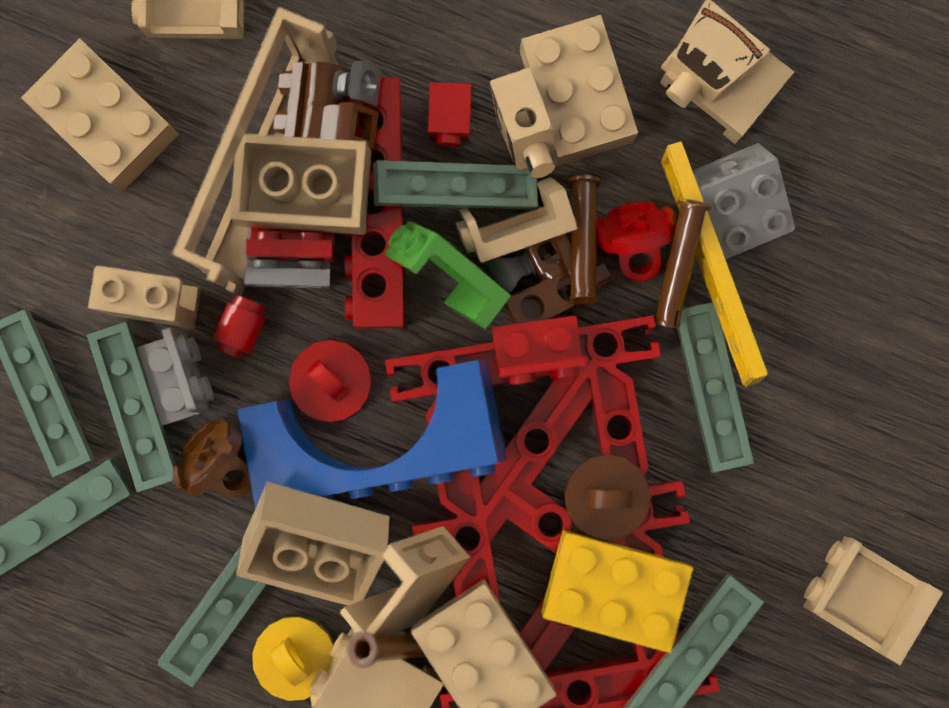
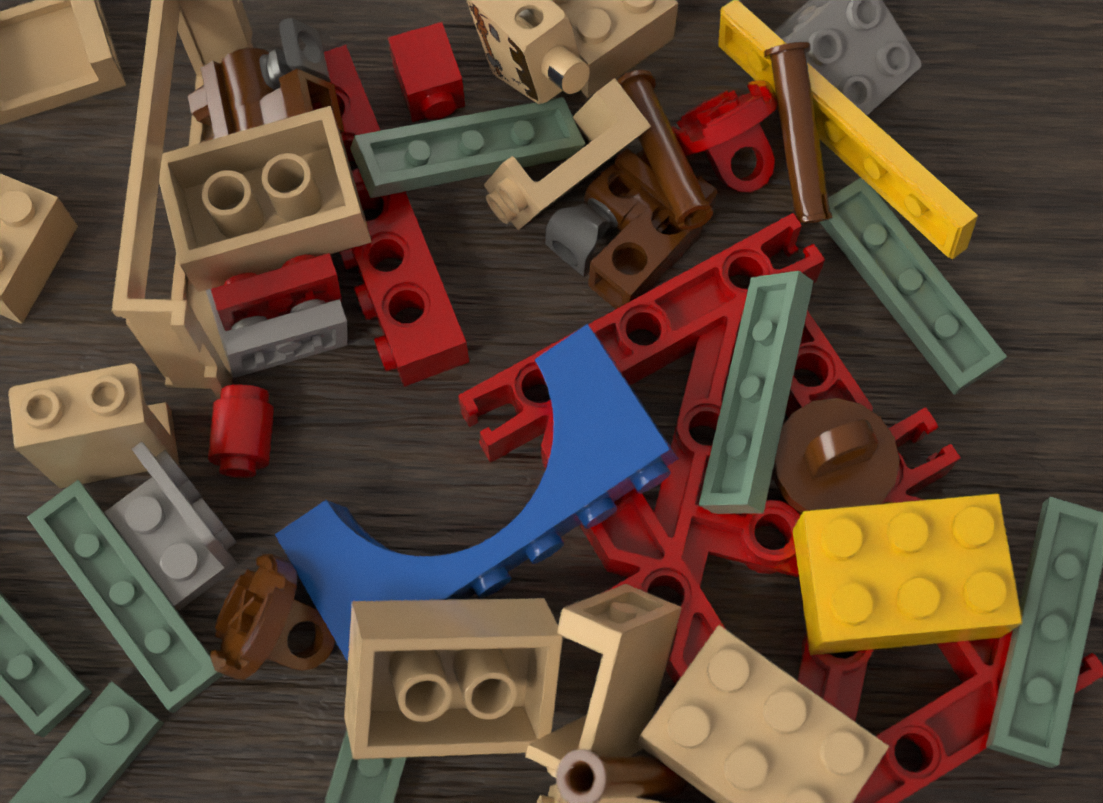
camera: 20 degrees left, 15 degrees down
(330, 381) = (392, 462): red tile -> none
(475, 295) = (510, 235): bright green panel -> none
(538, 347) = (662, 300): red bracket -> none
(574, 435) = (756, 394): none -> sand green plate

